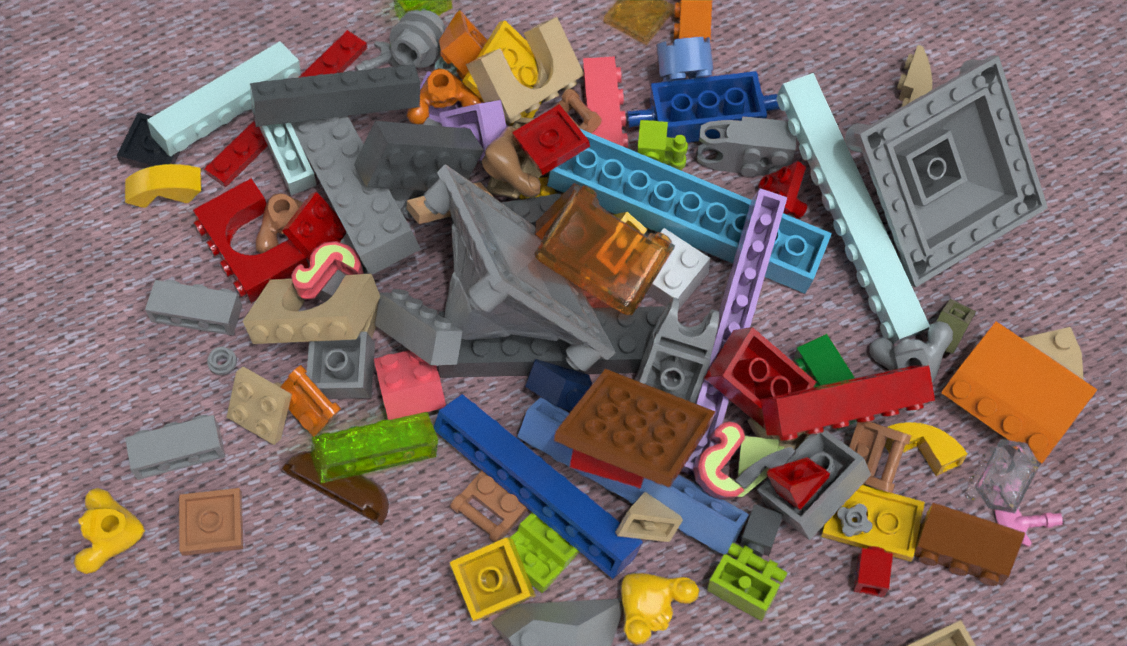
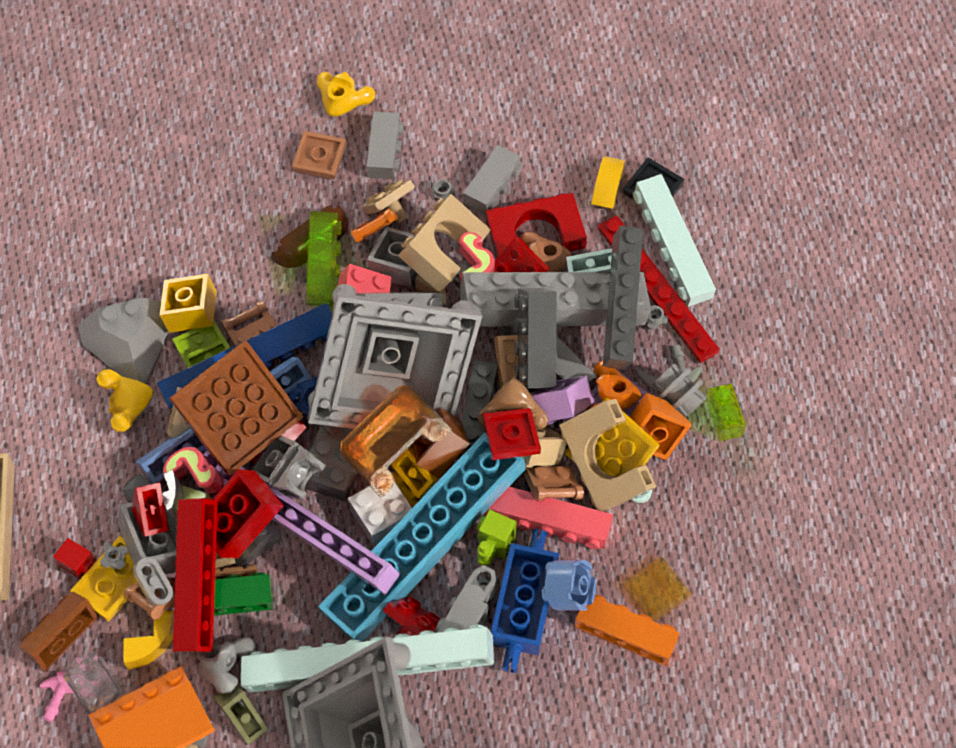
camera: 110 degrees right, 0 degrees up
(743, 585) = (107, 462): lime brick -> none
(879, 439) = (155, 580): none -> light grey plate

